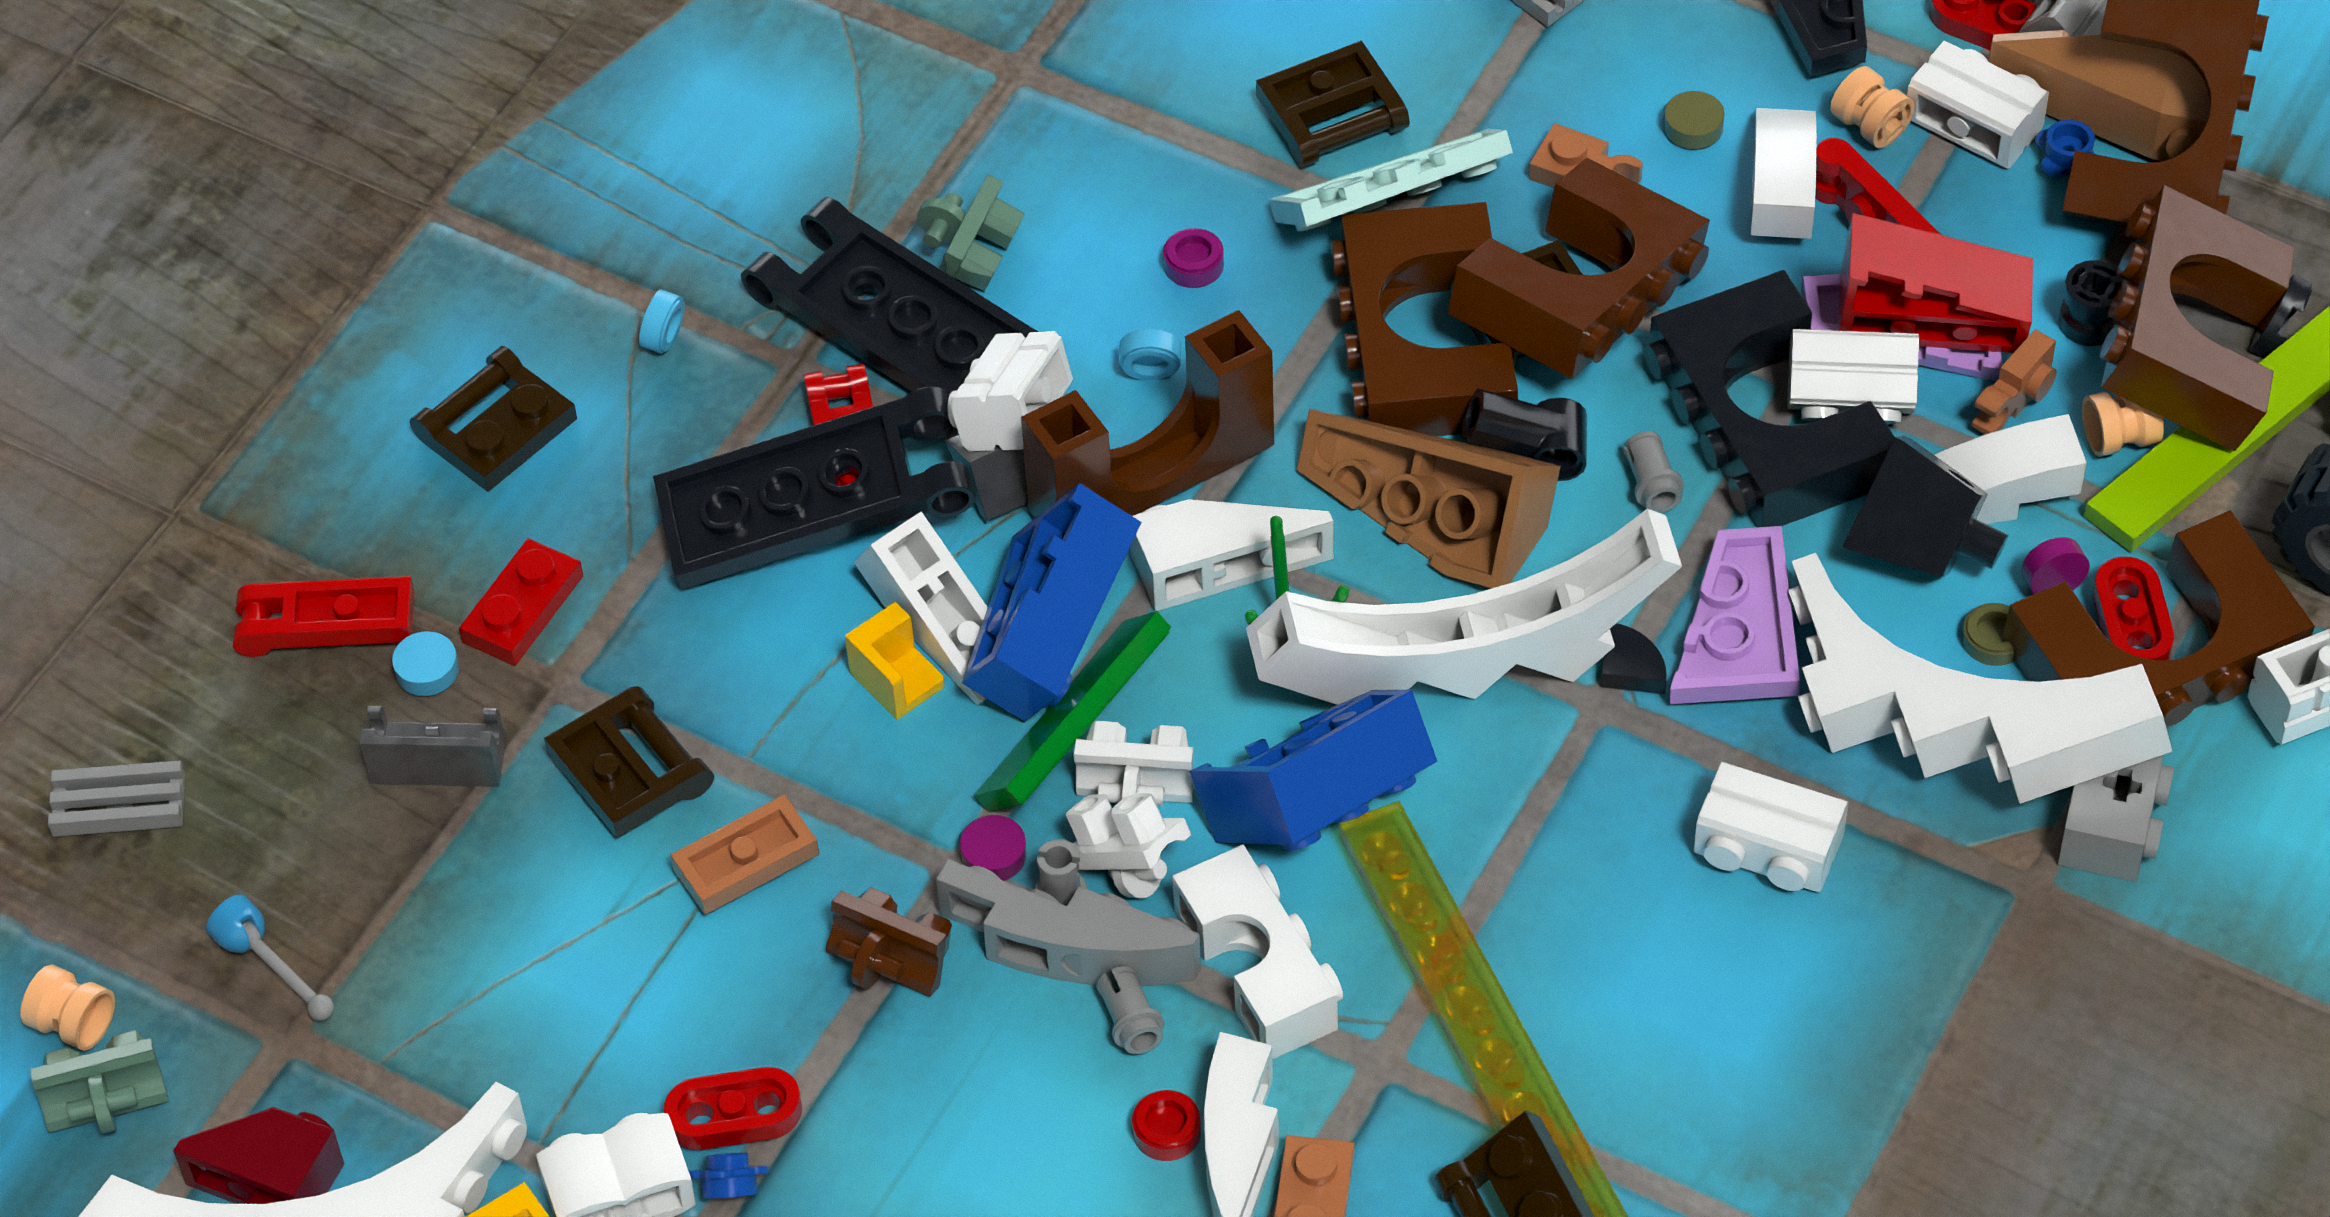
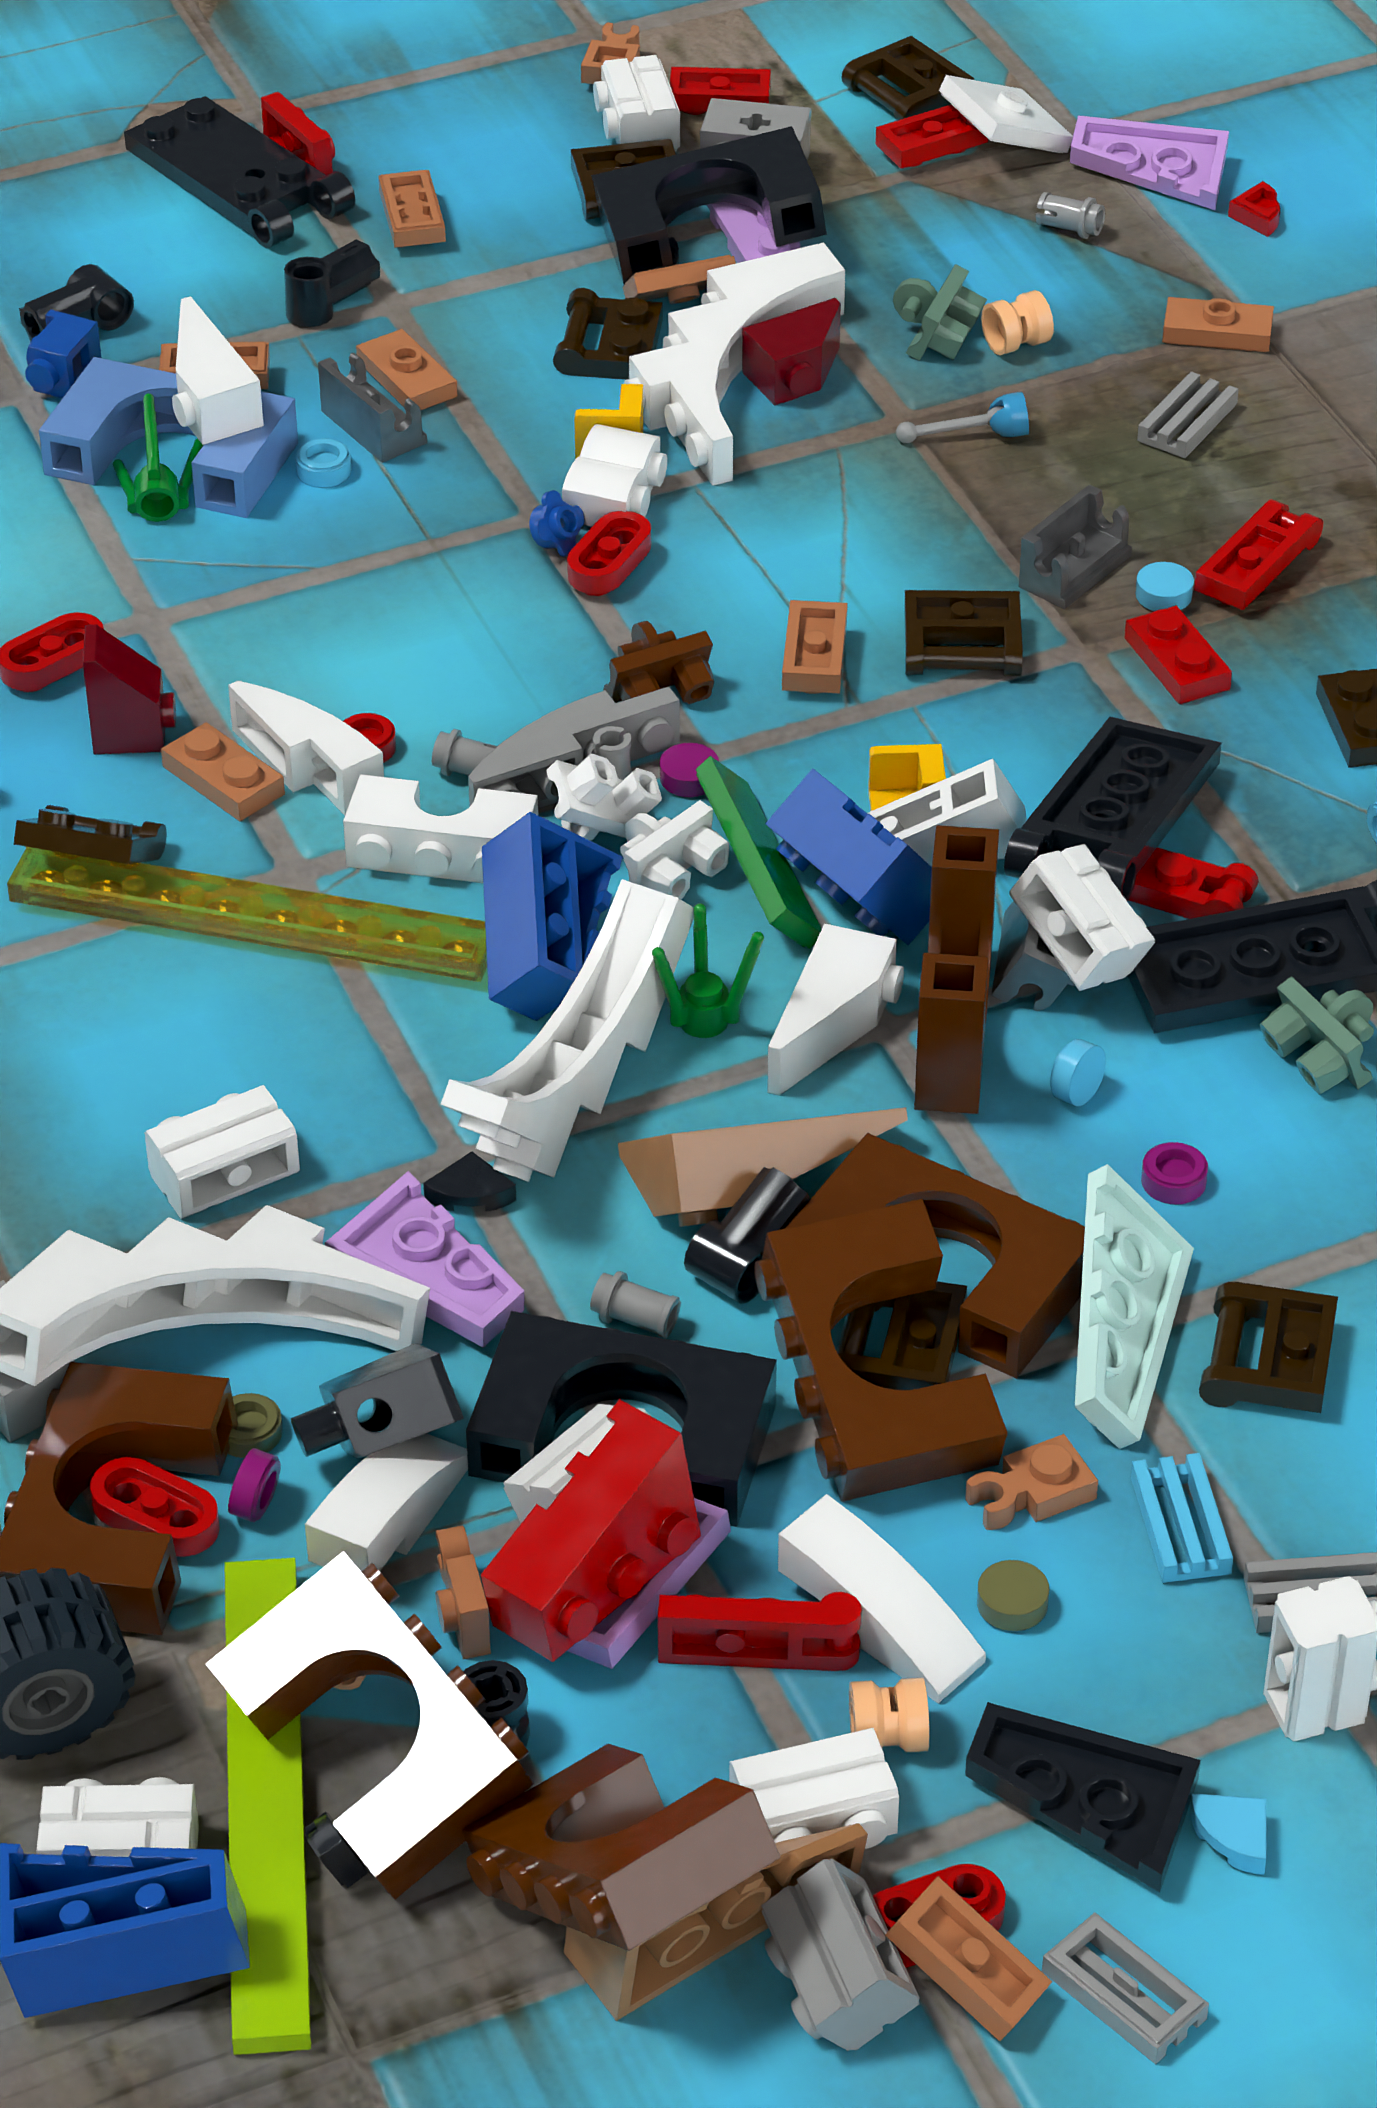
camera: 125 degrees right, 10 degrees down
(1526, 69) = (1172, 1478): none -> medium azure tile

